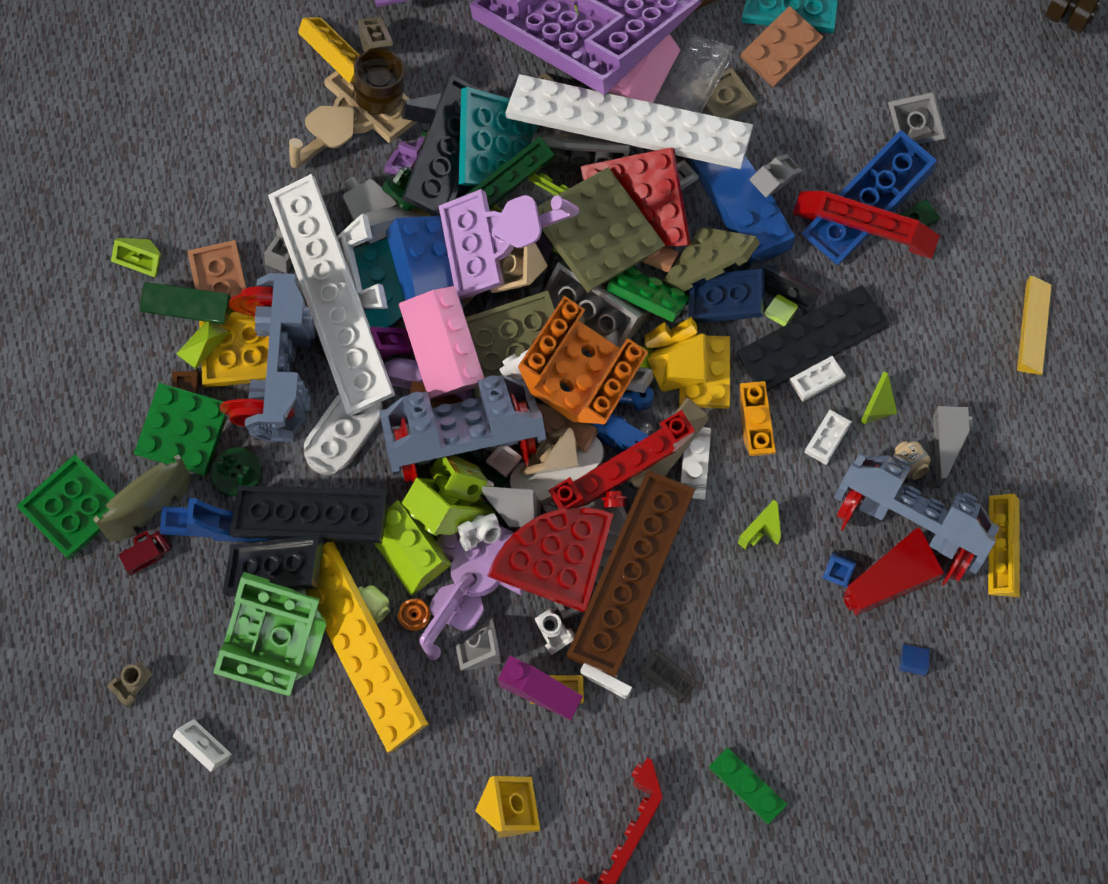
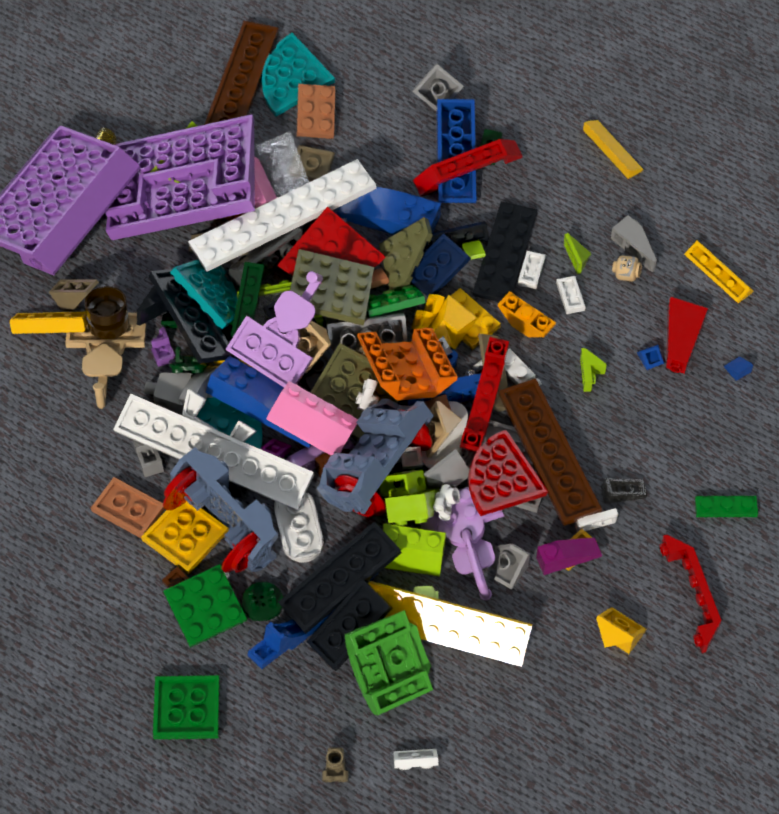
camera: 45 degrees left, 10 degrees down
(137, 255) = (60, 538): lime slope -> none
(143, 499) = (234, 659): olive slope -> none
(145, 552) = (261, 691): dark red piece -> none
(185, 303) = (126, 534): dark green slope -> none
(202, 343) = (162, 548): lime slope -> none
(412, 606) = (458, 578): orange plate -> none
(558, 636) = (540, 521): white plate -> none
(614, 499) = (498, 422): red plate -> none
(775, 175) = (393, 180): light grey slope -> none
(959, 531) = (630, 288): sand blue piece -> none

